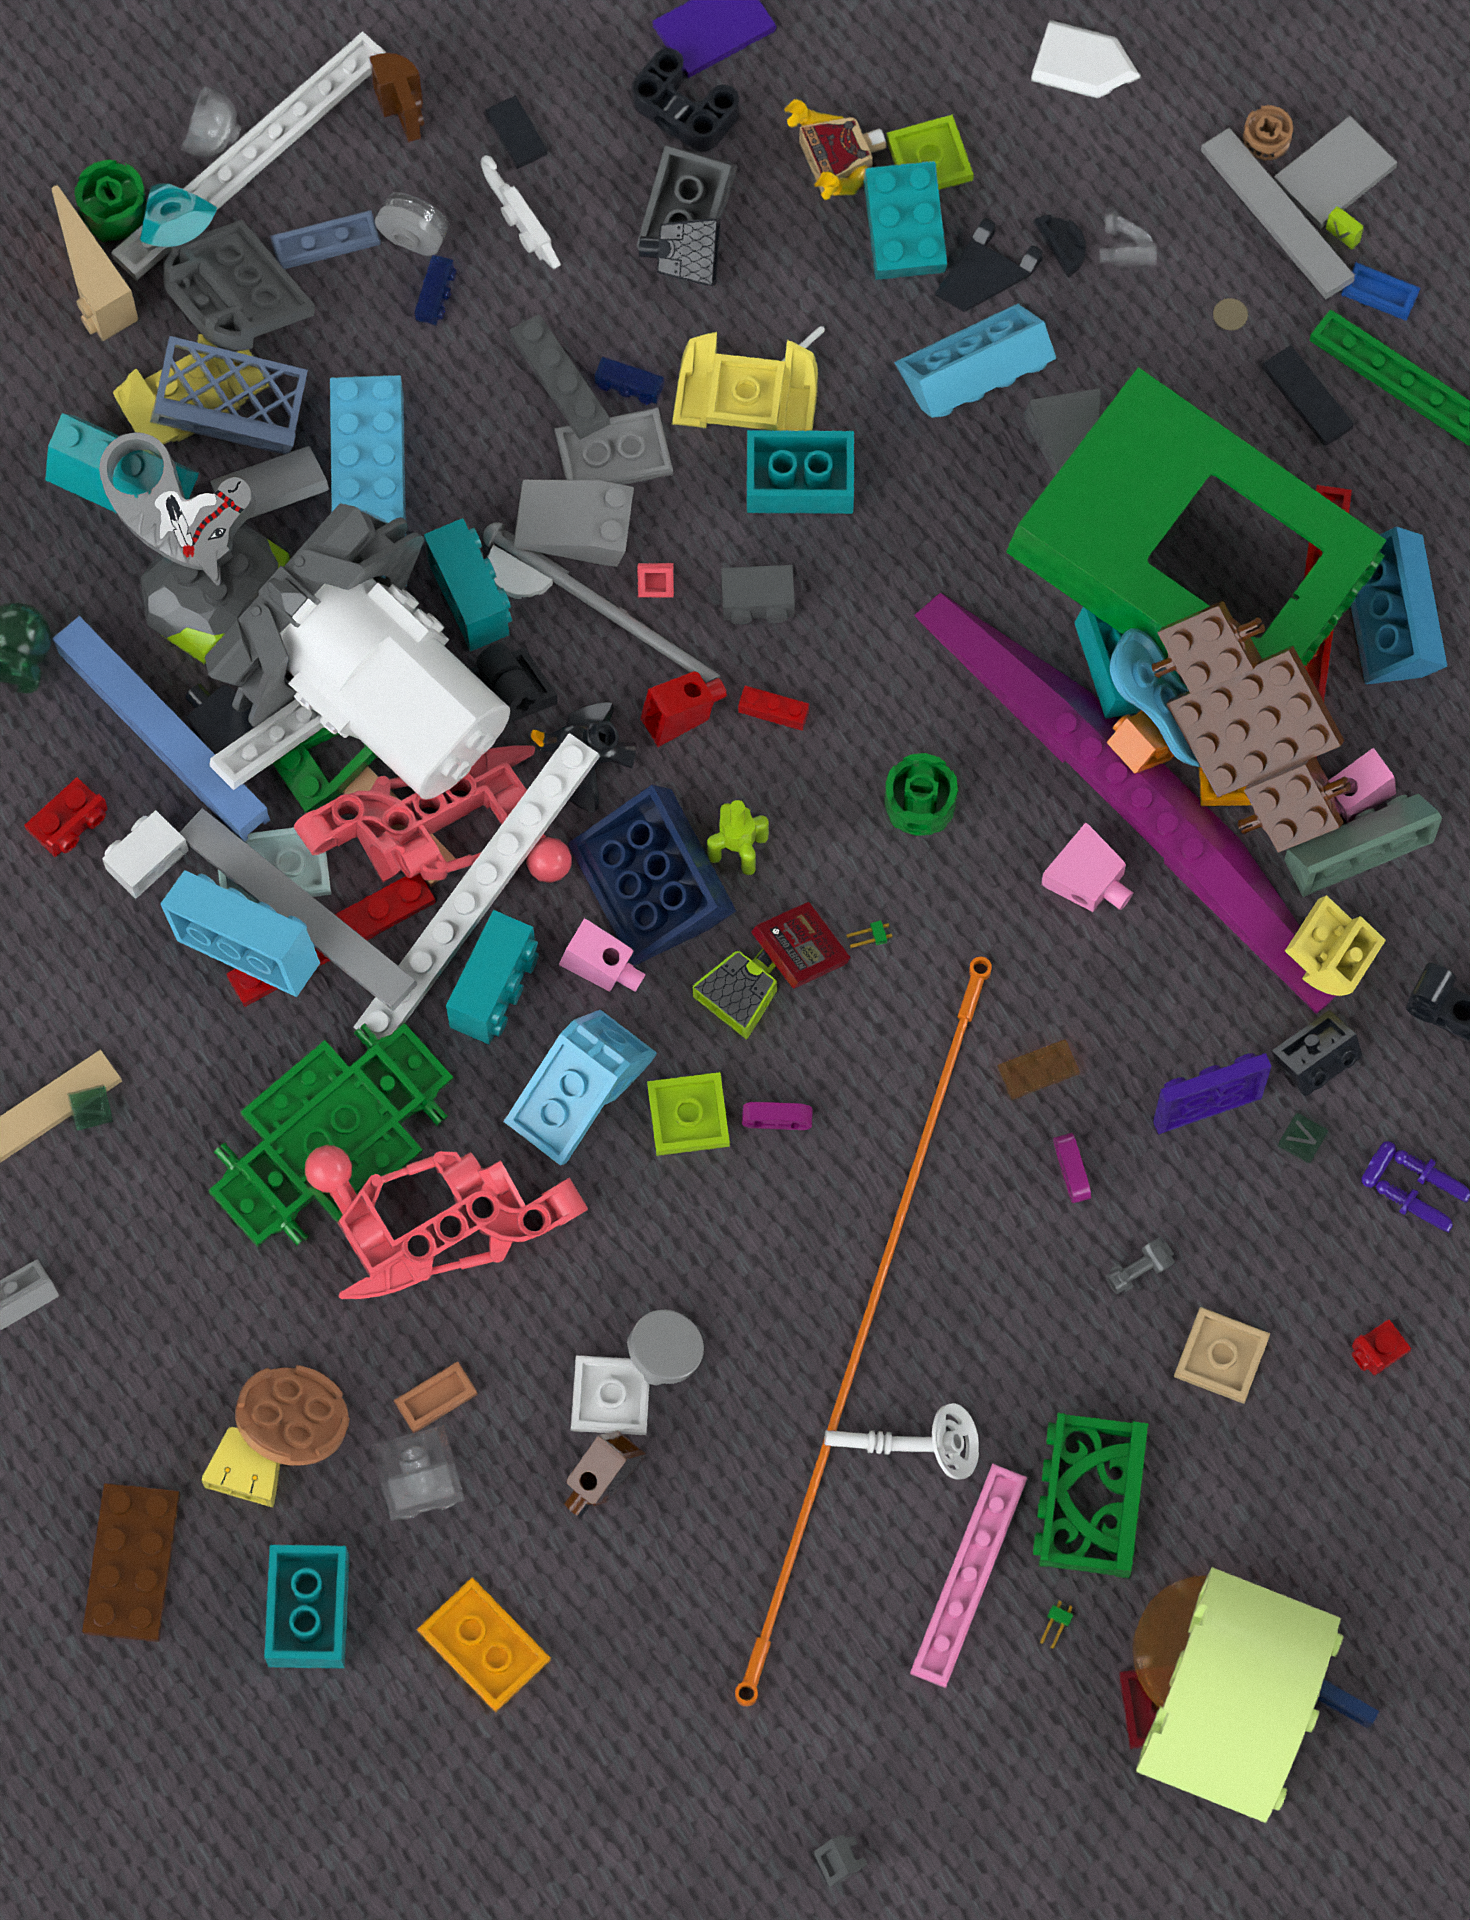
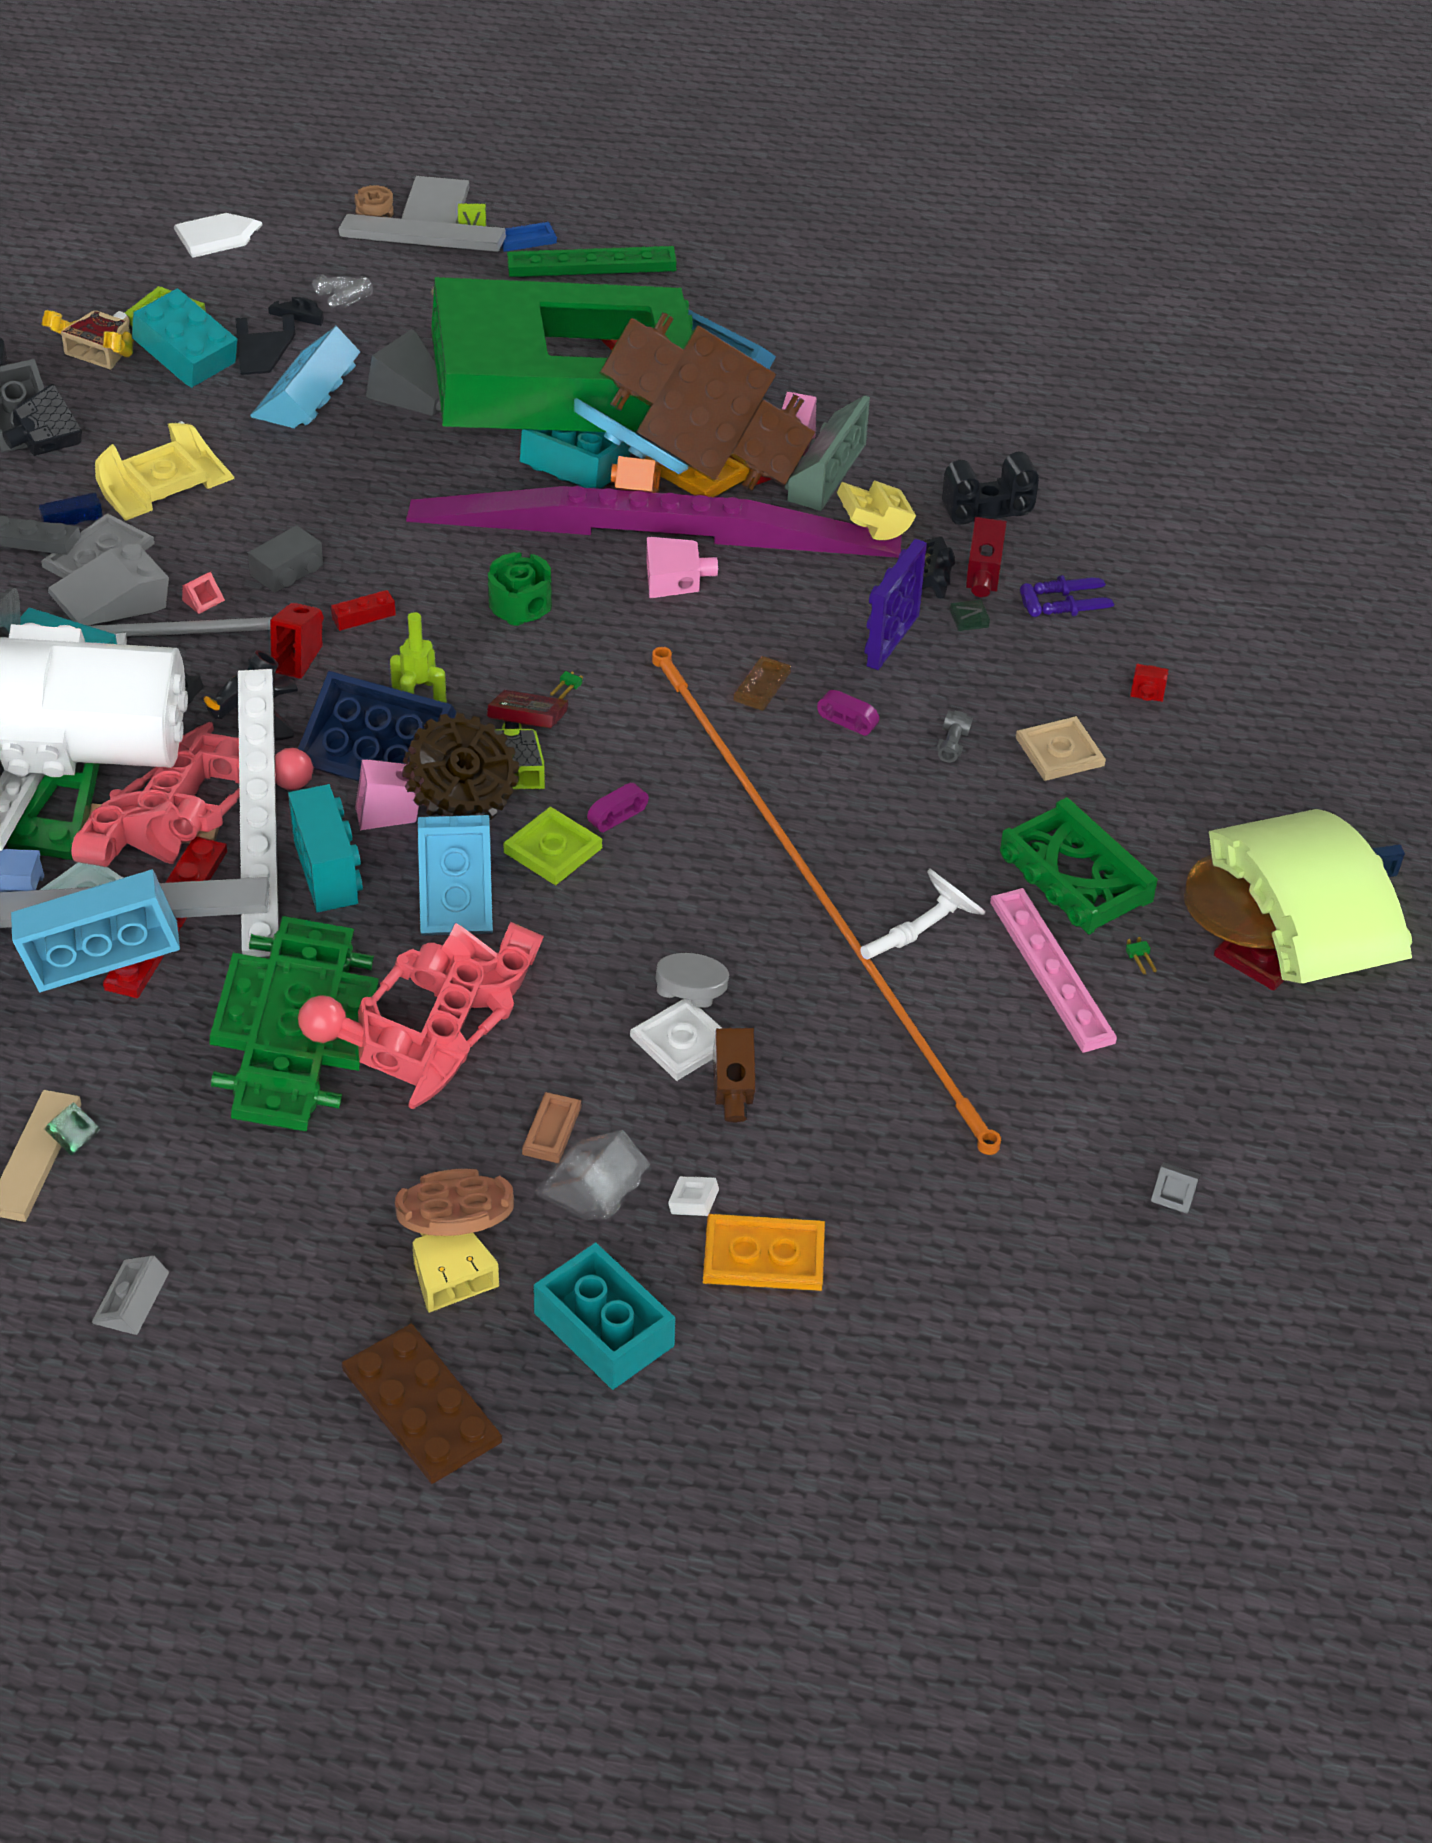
camera: 45 degrees left, 25 degrees down
(474, 1553) = (693, 1196): none -> white plate
(679, 1010) = (460, 767): none -> dark brown piece
(800, 471) = (248, 484): teal brick -> none
(1379, 1080) = (985, 570): none -> dark red torso

